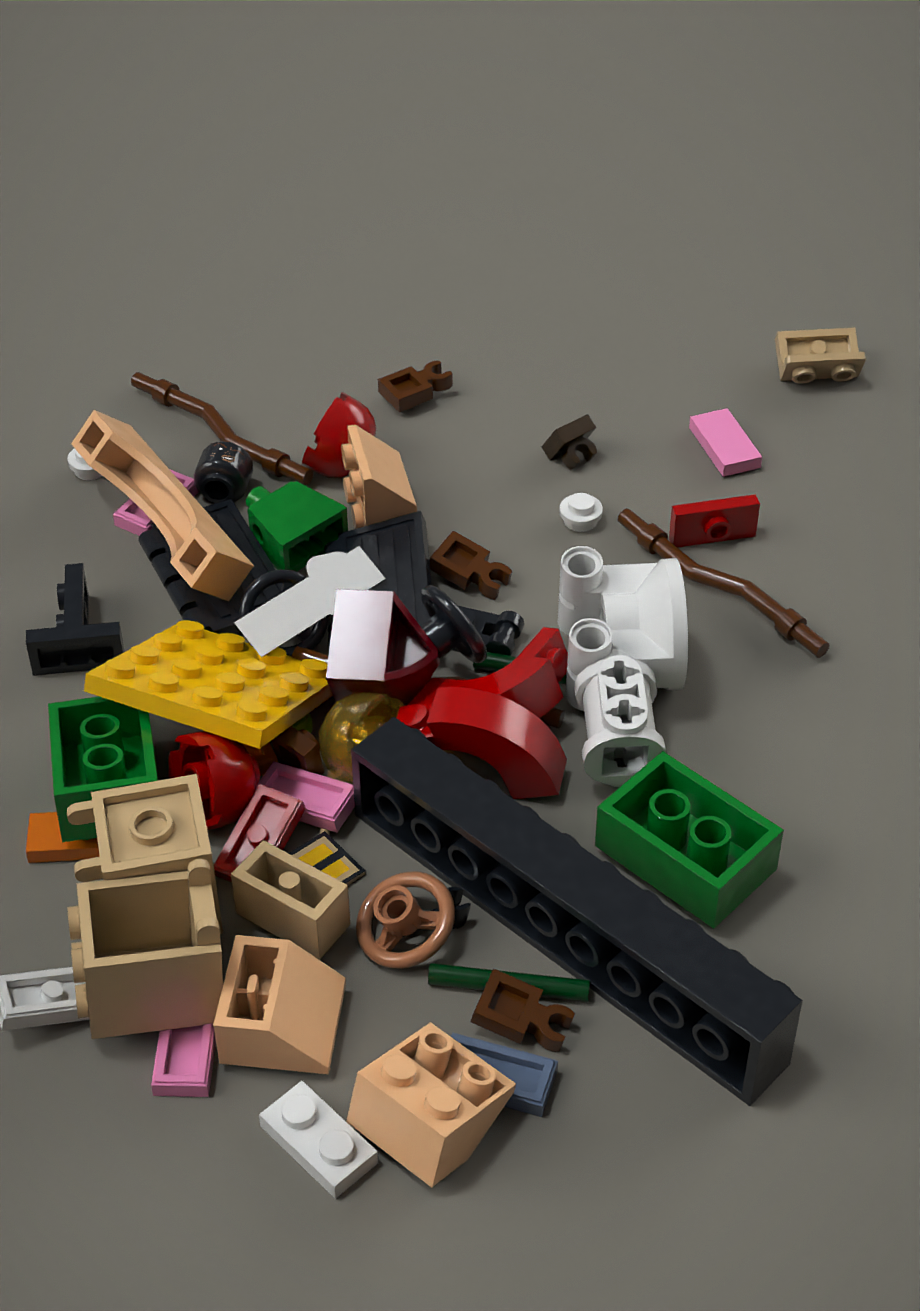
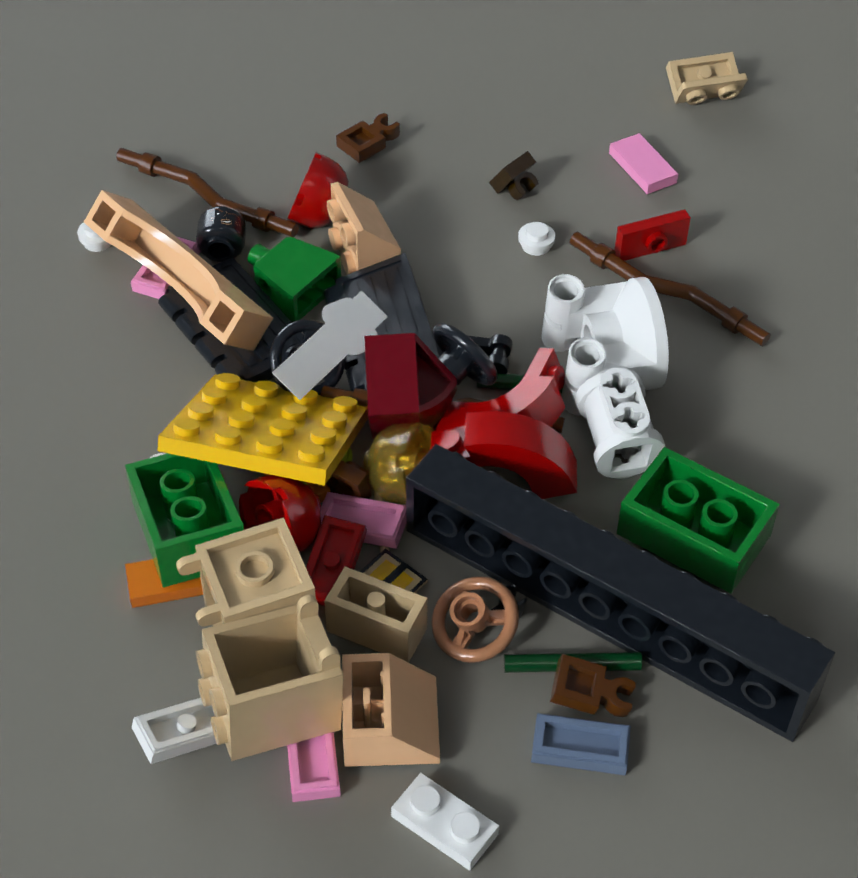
camera: 10 degrees left, 5 degrees up
(73, 642) = (125, 405): black bracket -> none
(428, 1103) = (534, 778): light nougat slope -> none
(467, 562) = (450, 293): reddish brown plate -> none

